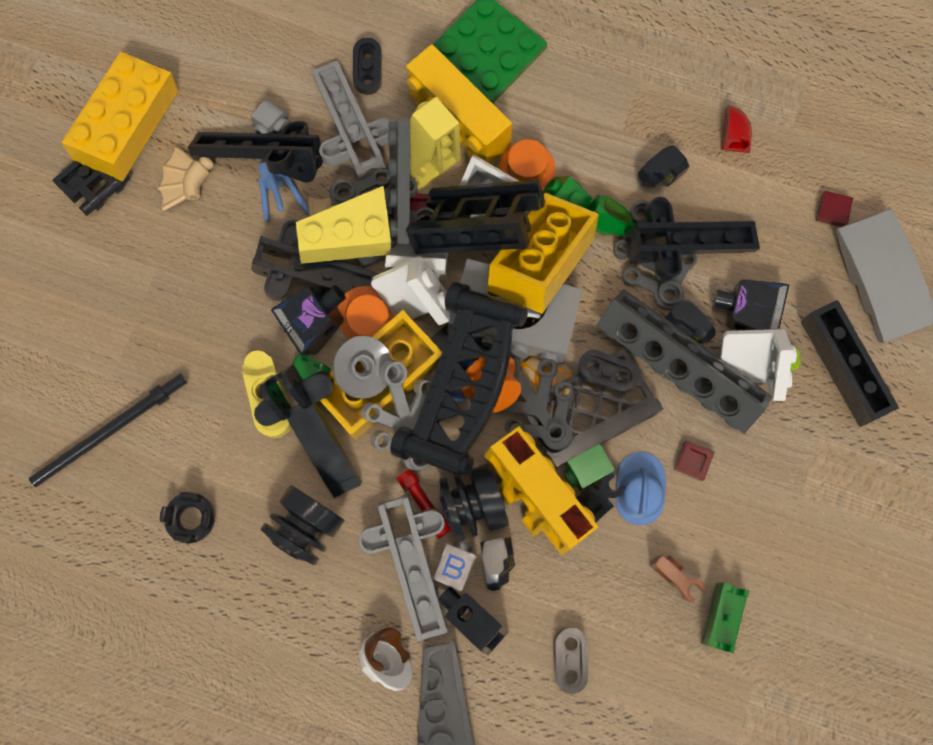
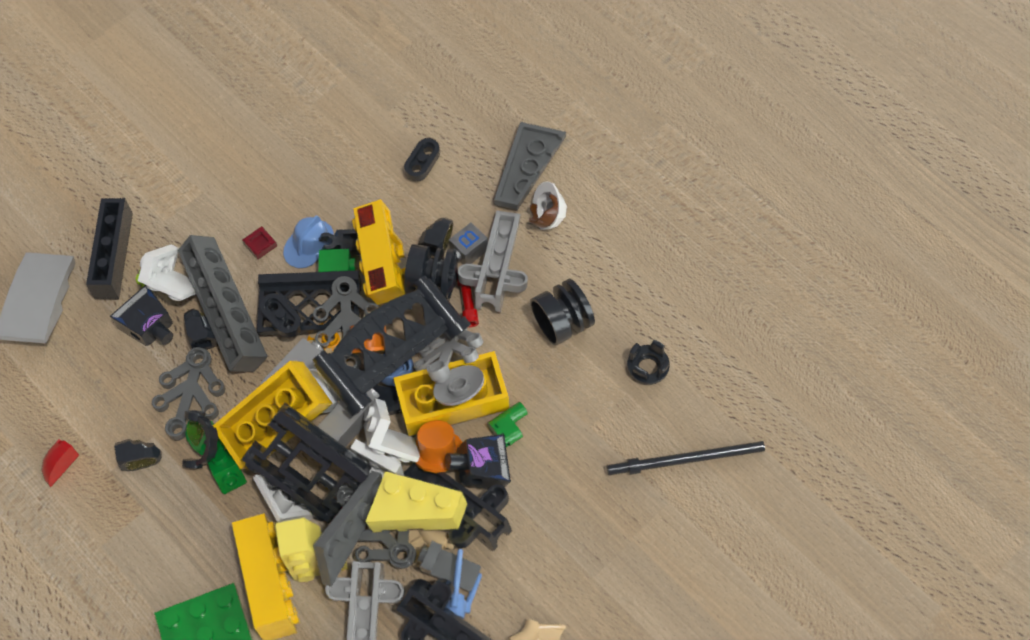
camera: 155 degrees left, 15 degrees down
(255, 370) = (543, 441): light yellow piece -> none
(296, 204) = (442, 565): none -> dark grey bracket
(309, 424) = (522, 376): black piece -> none
(481, 629) = (473, 201): black torso -> none
(528, 161) = (237, 505): orange piece -> none
(621, 218) = (211, 440): none -> black piece
(671, 571) = (322, 179): dark orange plate -> none
(685, 238) = (159, 385): black piece -> none
(725, 617) = (306, 142): green hinge -> none
(834, 209) = (32, 365): dark red tile -> none

